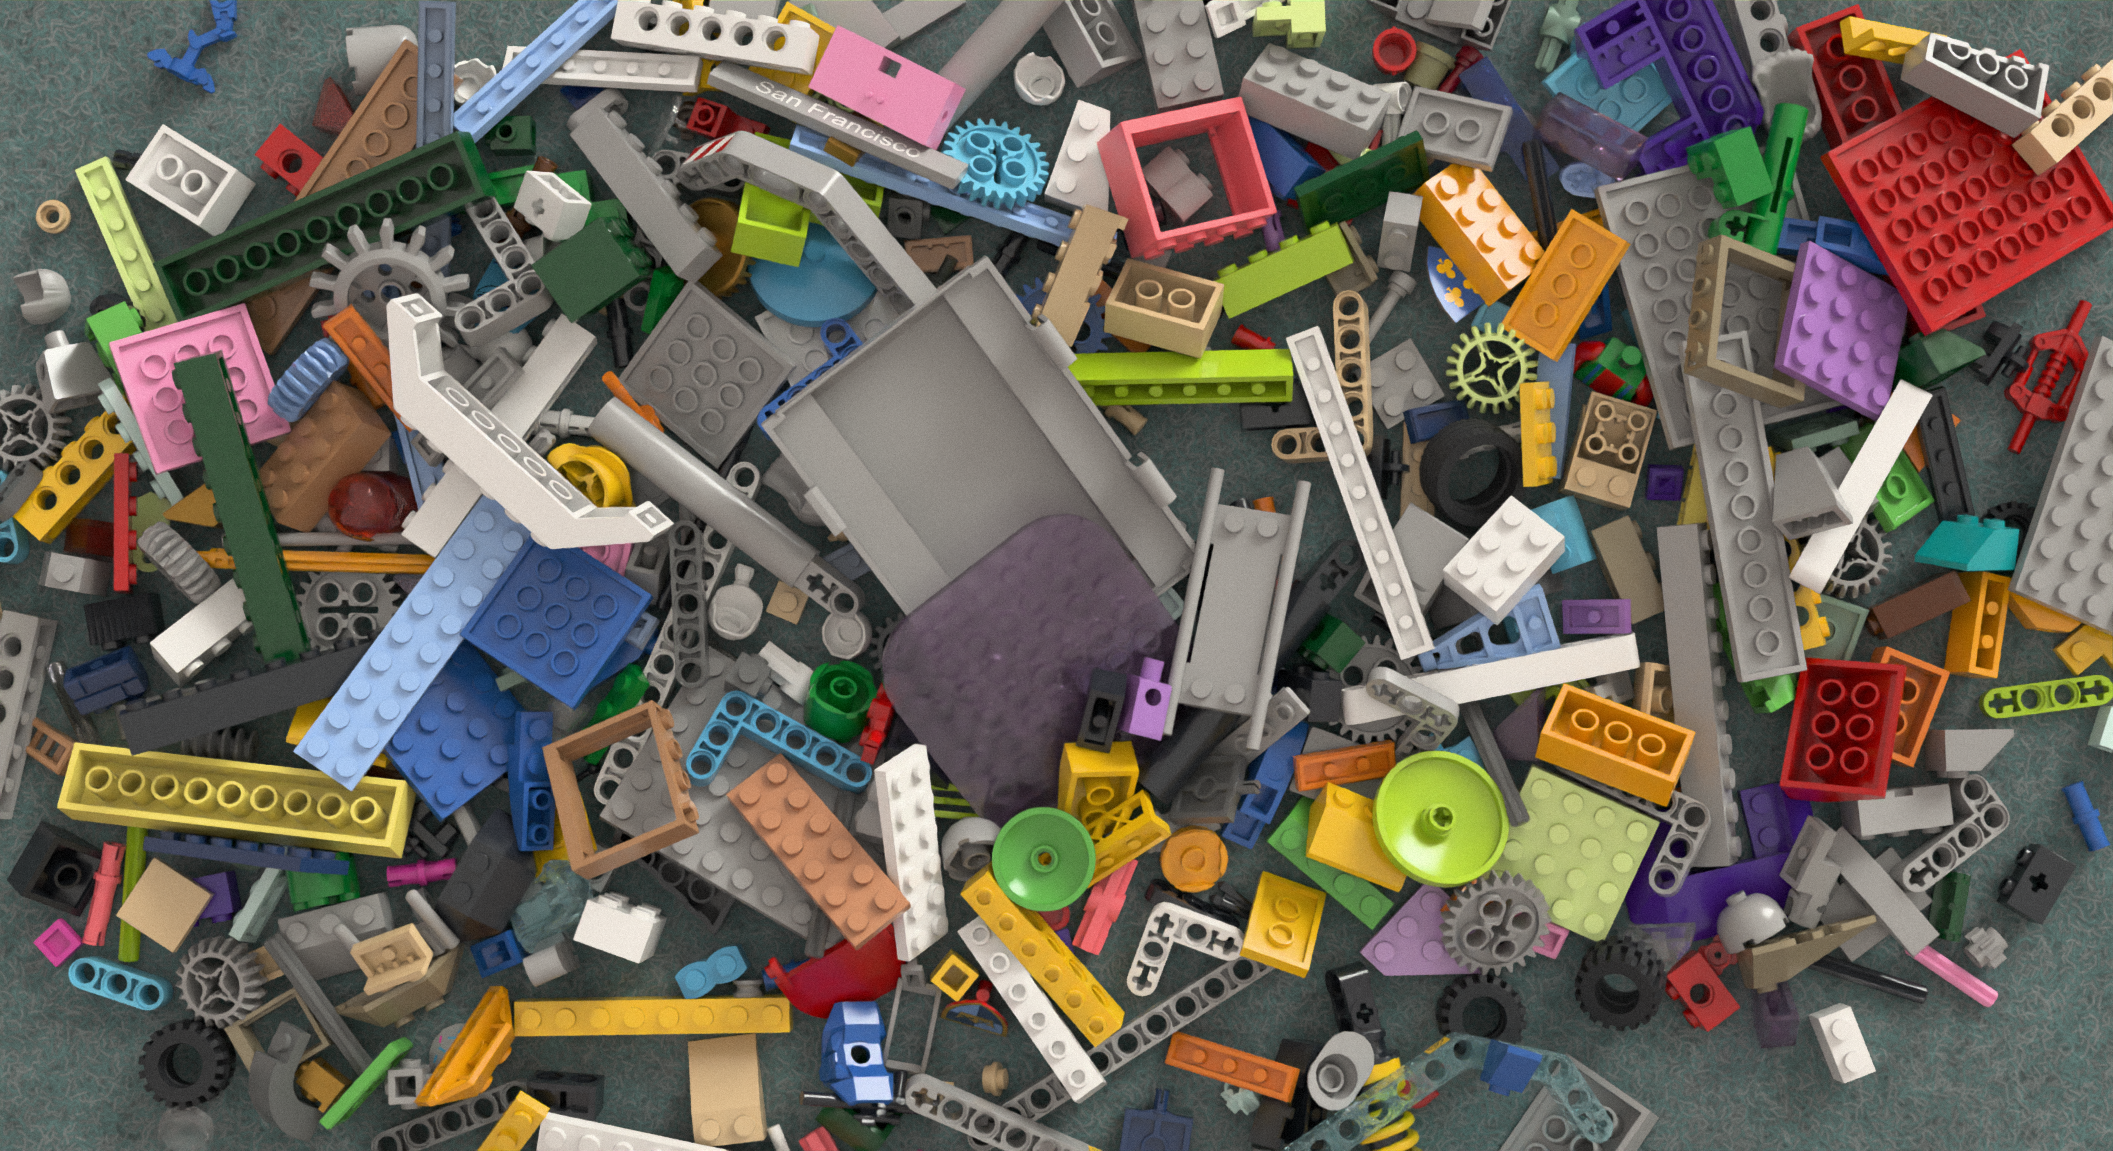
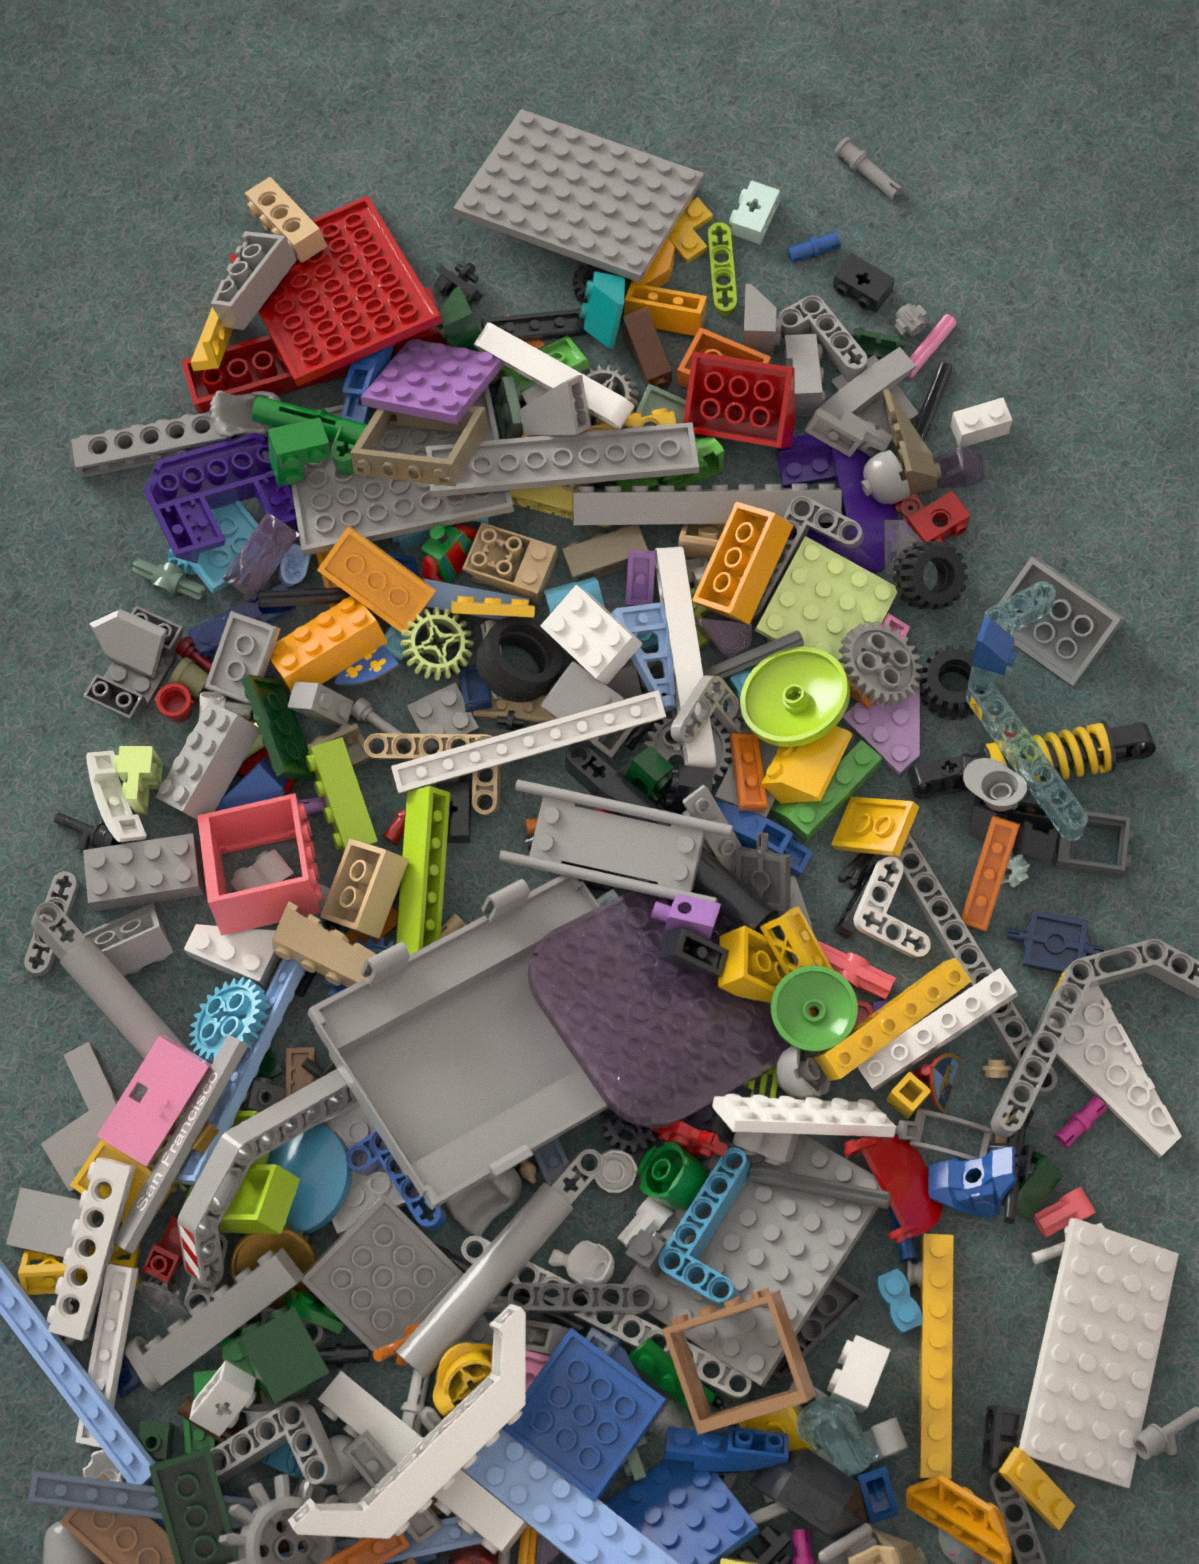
camera: 80 degrees left, 15 degrees down
(726, 1090) = (1002, 1297): tan slope -> none
(787, 603) = (585, 1222): tan plate -> none
(818, 851) = (799, 1193): nougat plate -> none
(1009, 252) = (300, 1017): black pin -> none
(1033, 68) = (171, 980): white hair -> none
(1193, 858) = (819, 897): light orange tile -> none
(1664, 482) = (538, 524): dark purple tile -> none
(2036, 406) = (499, 262): red bar -> none

